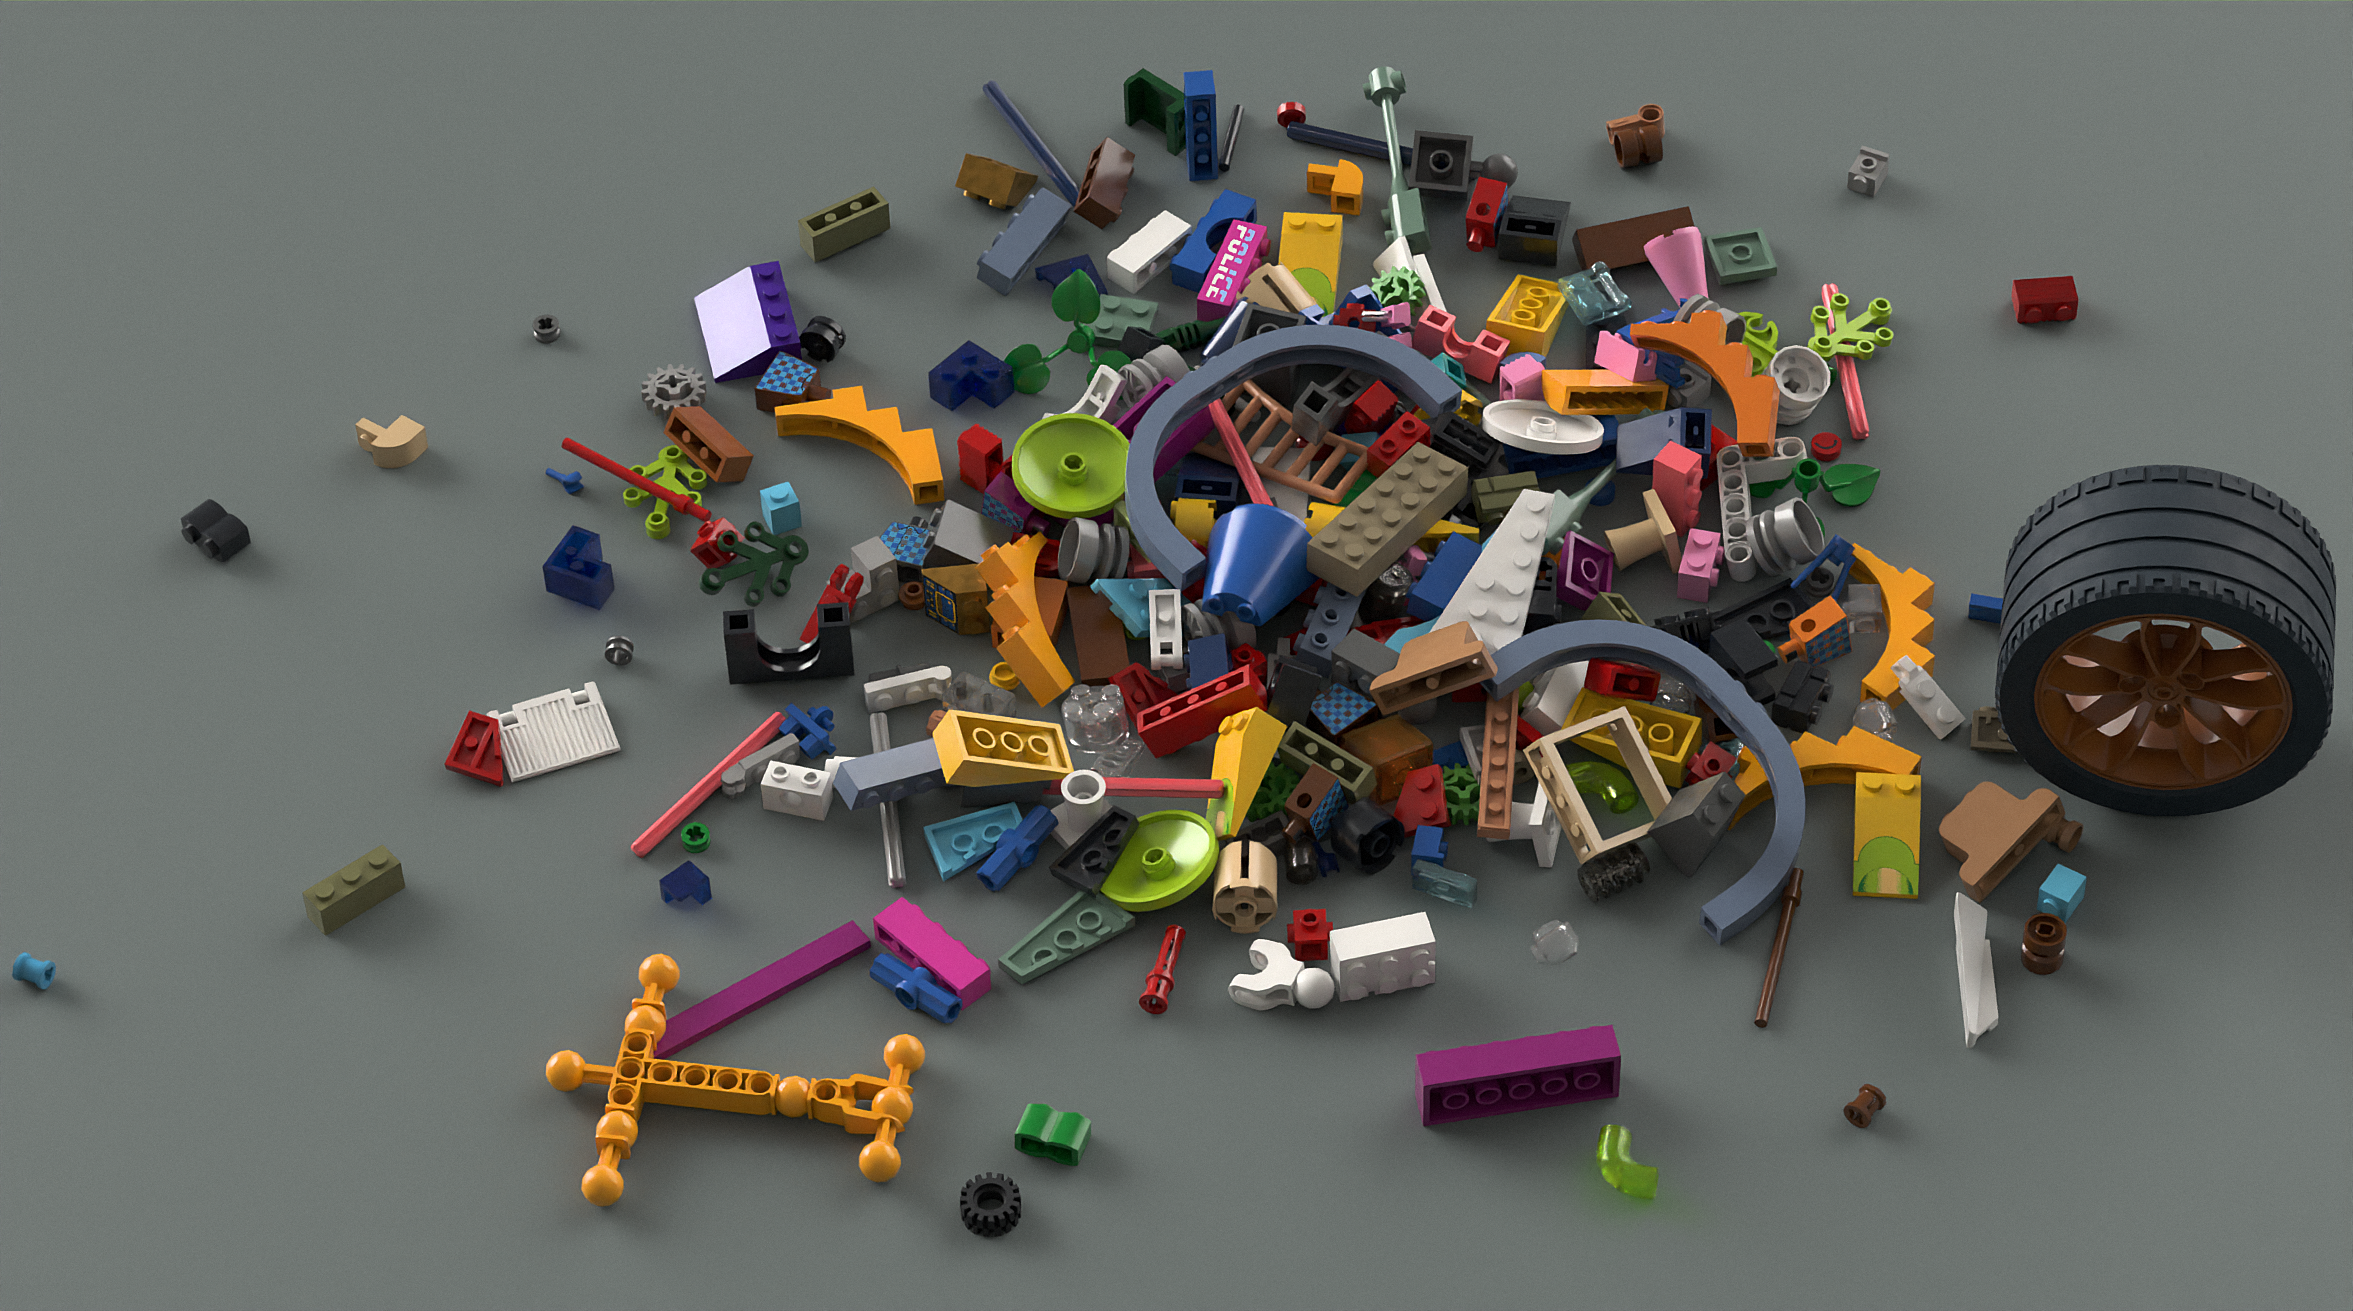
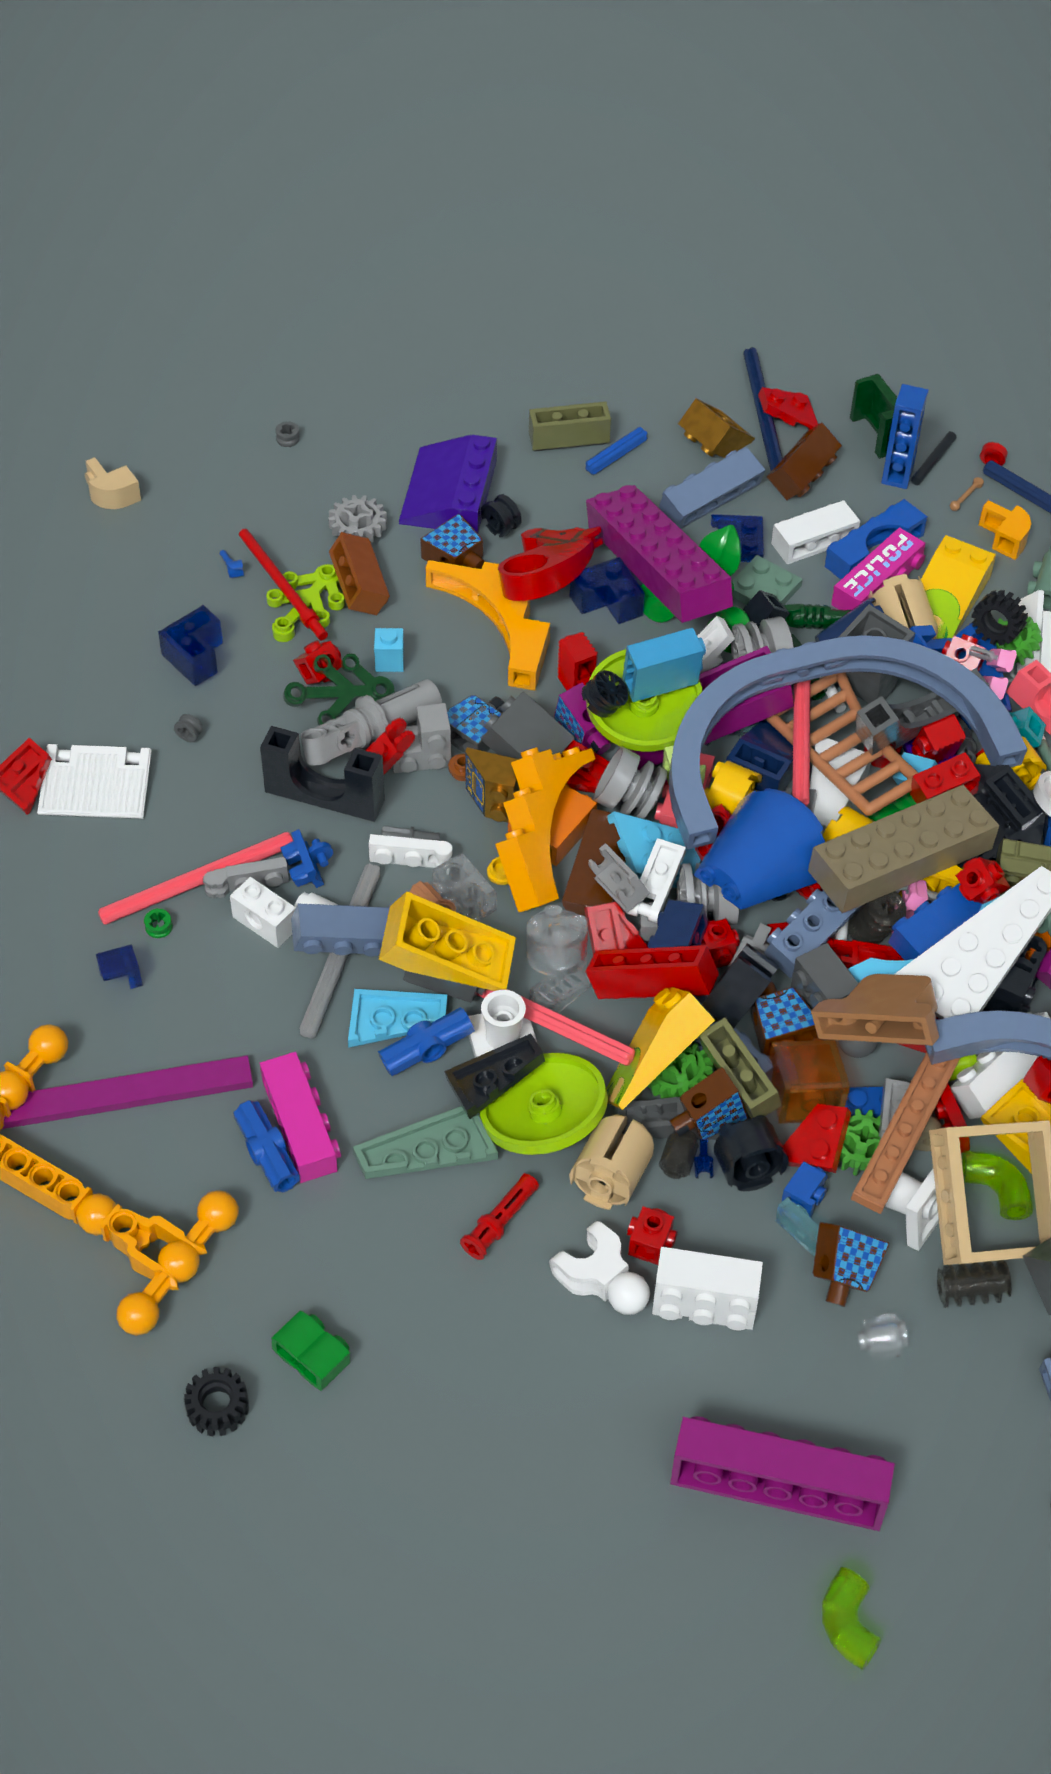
camera: 20 degrees right, 5 degrees up
(803, 581) = (366, 722): none -> light grey piece
(899, 368) = (548, 562): none -> red animal
(902, 234) = (616, 450): none -> blue axle
(1009, 322) = (660, 553): none -> magenta brick
(1036, 472) = (604, 695): none -> black wheel
(1060, 131) = (788, 406): none -> red wing
(1082, 424) = (663, 664): none -> dark azure brick
(1130, 639) = (618, 879): none -> light grey hinge
(1287, 148) = (977, 483): none -> medium nougat hinge
(1370, 288) = (991, 628): none -> black tyre
(1473, 522) = (982, 880): none -> red brick
(1494, 890) = (846, 1260): none -> torso

